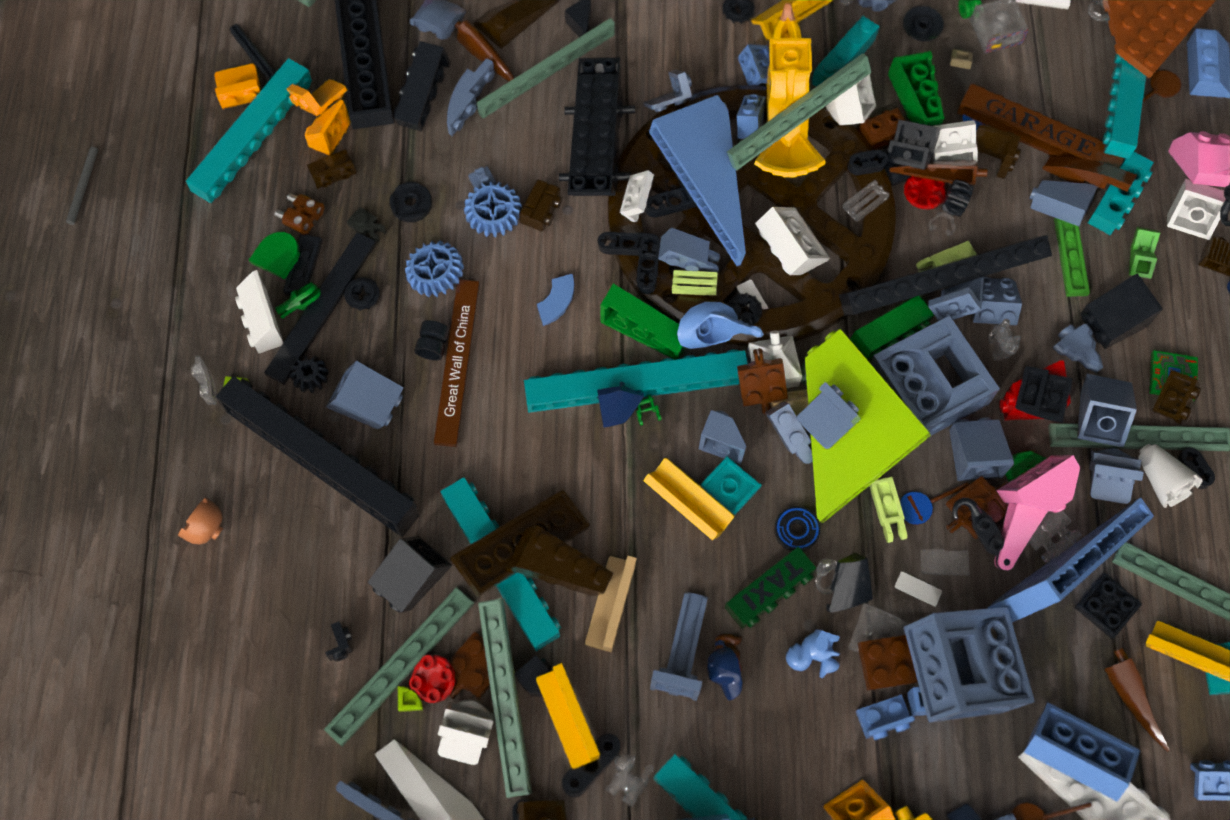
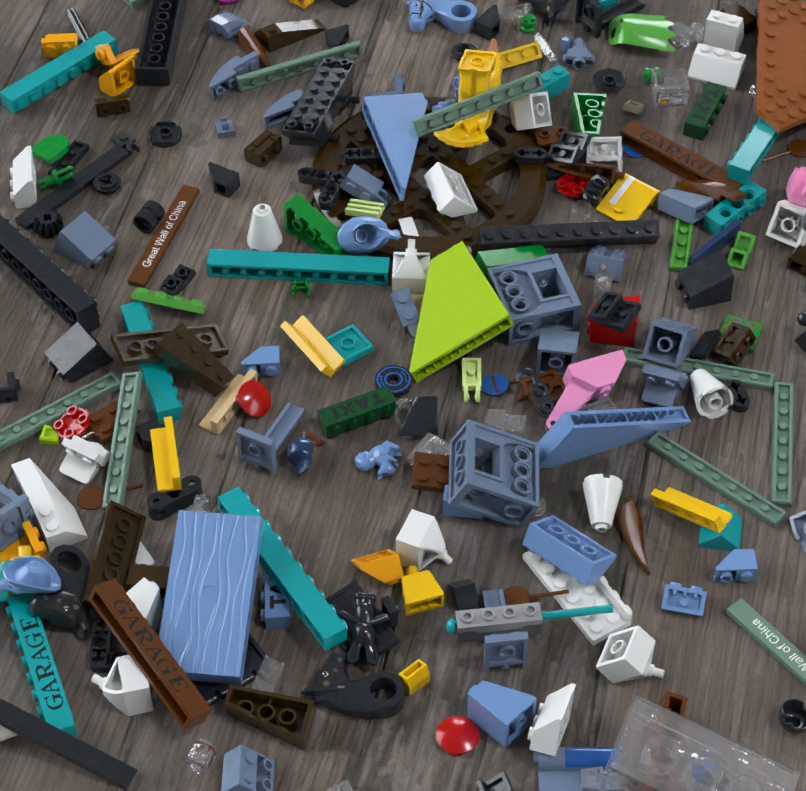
camera: 15 degrees right, 20 degrees down
(302, 214) = (77, 129): reddish brown piece -> none
(421, 85) = (198, 61): black wedge -> none
(443, 275) = (167, 173): medium blue gear -> none
(485, 466) = (162, 298): none -> bright green wing
(488, 781) = (92, 496): none -> reddish brown piece
(495, 429) = (178, 281): none -> black slope
(504, 263) = (223, 180): none -> black slope
(508, 206) = (225, 145): medium blue gear -> none
(549, 138) = (282, 109): none -> sand blue slope
(558, 300) = (246, 213): medium blue tile -> none
(580, 339) = (263, 230): none -> white cone
(618, 404) = (276, 274): dark blue slope -> none
(636, 195) = (334, 150): white bracket -> none
(637, 535) = (264, 361): none -> medium blue slope
(643, 596) = (254, 398): none -> red dish
(722, 437) = (349, 307): sand blue slope -> none
(754, 307) = (406, 231): black gear -> none
(762, 381) = (393, 272): reddish brown plate -> none
(829, 416) = (437, 296): sand blue bracket -> none
(877, 191) = (518, 178): clear tile -> none
(884, 717) = (426, 506): medium blue bracket -> none
(904, 773) = (420, 541): none -> white piece
(958, 300) = (571, 249): sand blue bracket -> none
(995, 203) = (628, 199): none -> yellow door
(999, 145) = (639, 160): dark brown bracket -> none
(1046, 50) = (705, 111): none -> dark green brick
(1079, 346) = (665, 300): sand blue rock -> none
(1093, 664) = (602, 500): none -> white cone
(1108, 606) = (633, 471): black tile -> none
(1112, 251) = (717, 242): none -> dark blue tile
(1145, 398) = (705, 345): none -> black tile

